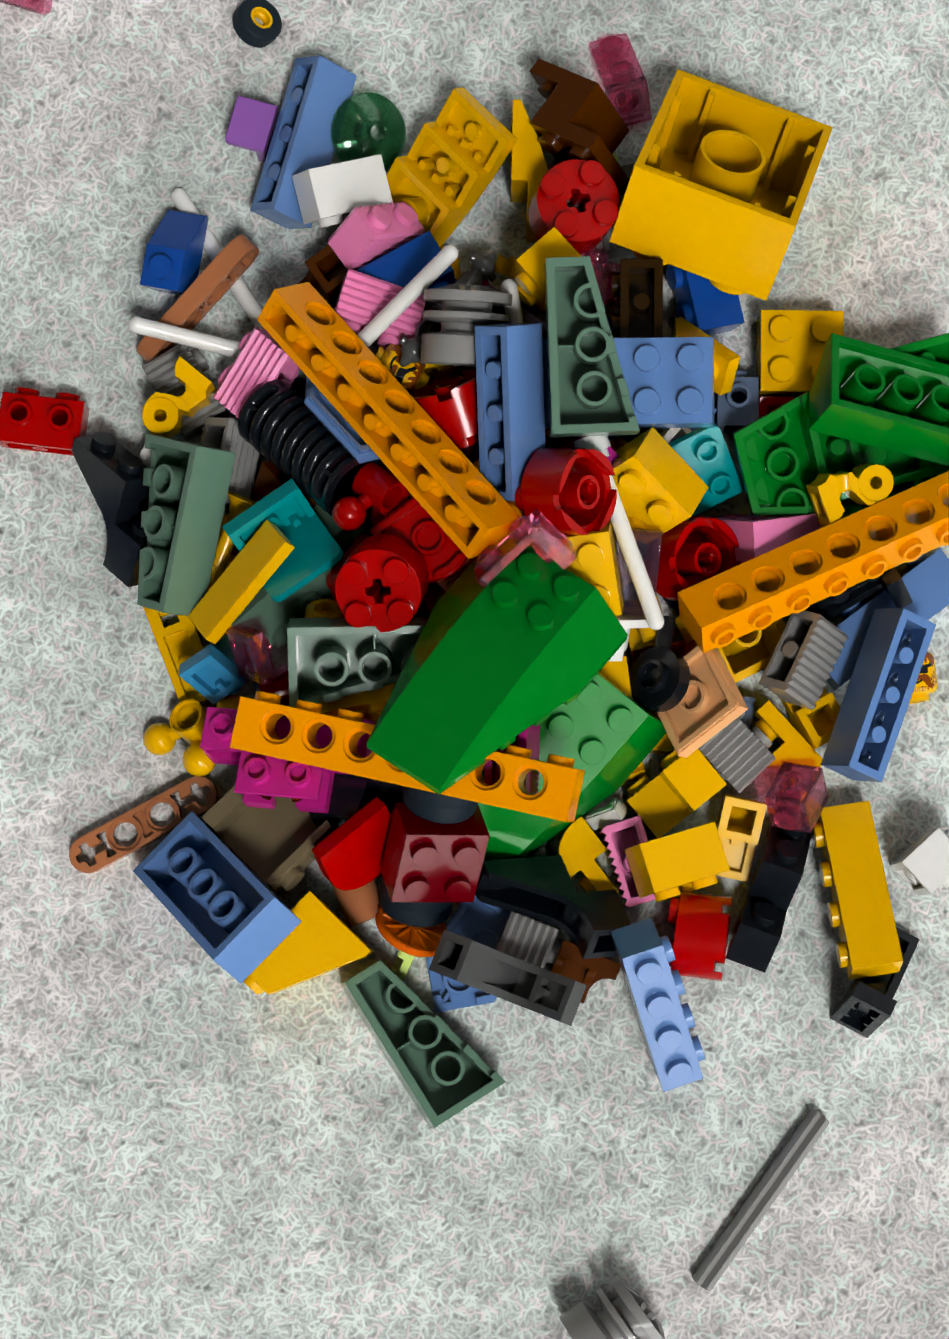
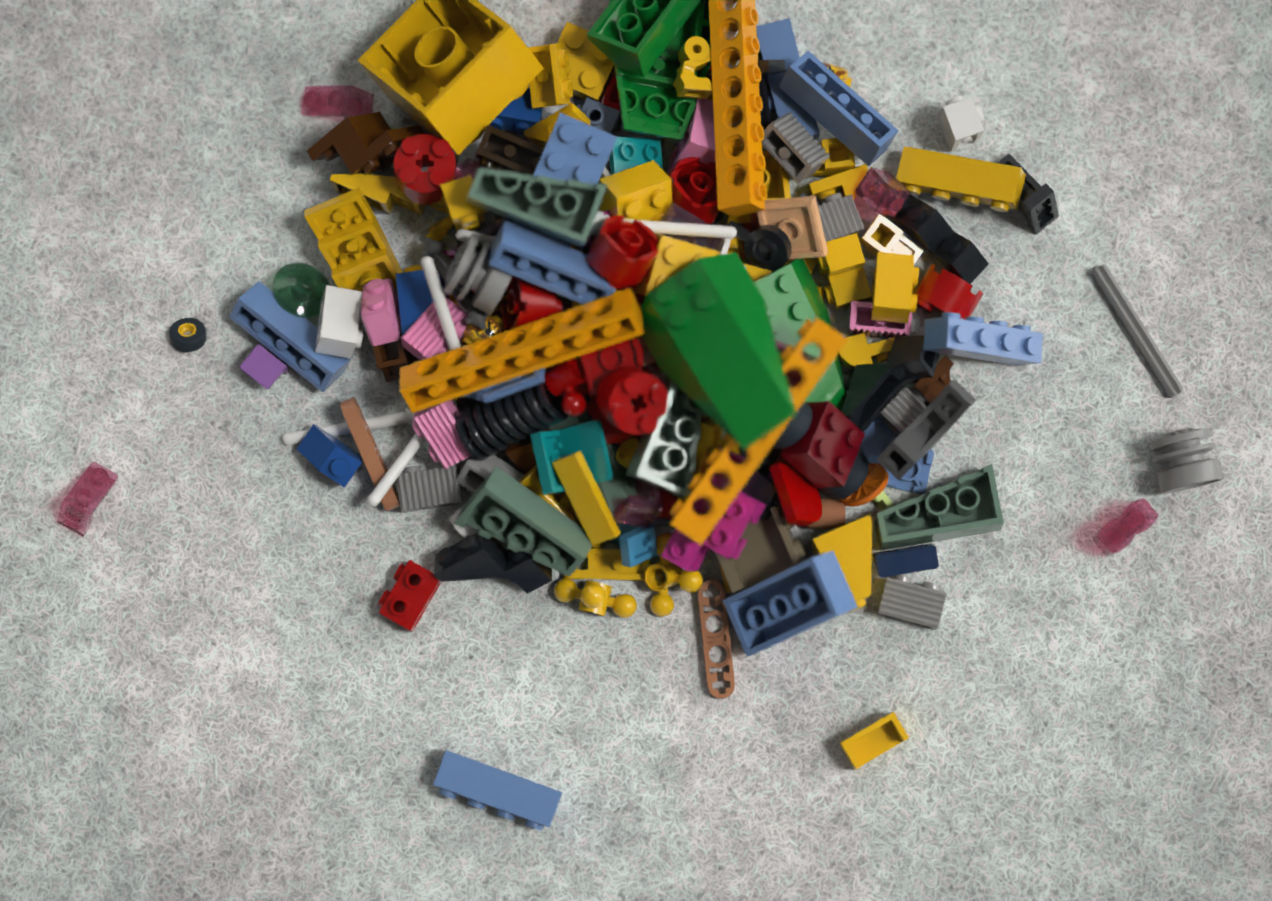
camera: 65 degrees left, 0 degrees up
(94, 1075) = (874, 740): none -> yellow panel
(132, 652) = (595, 598): none -> yellow piece
(164, 412) = (442, 505): yellow leg -> none
(290, 1053) = (912, 602): none -> light grey brick
(340, 1022) = (906, 560): none -> dark blue slope
(508, 1293) = (1120, 531): none -> clear pink brick
(548, 544) = (643, 291): clear pink bracket -> none
(606, 813) = (840, 320): white tile -> none
(753, 321) = (551, 84): none -> yellow bracket

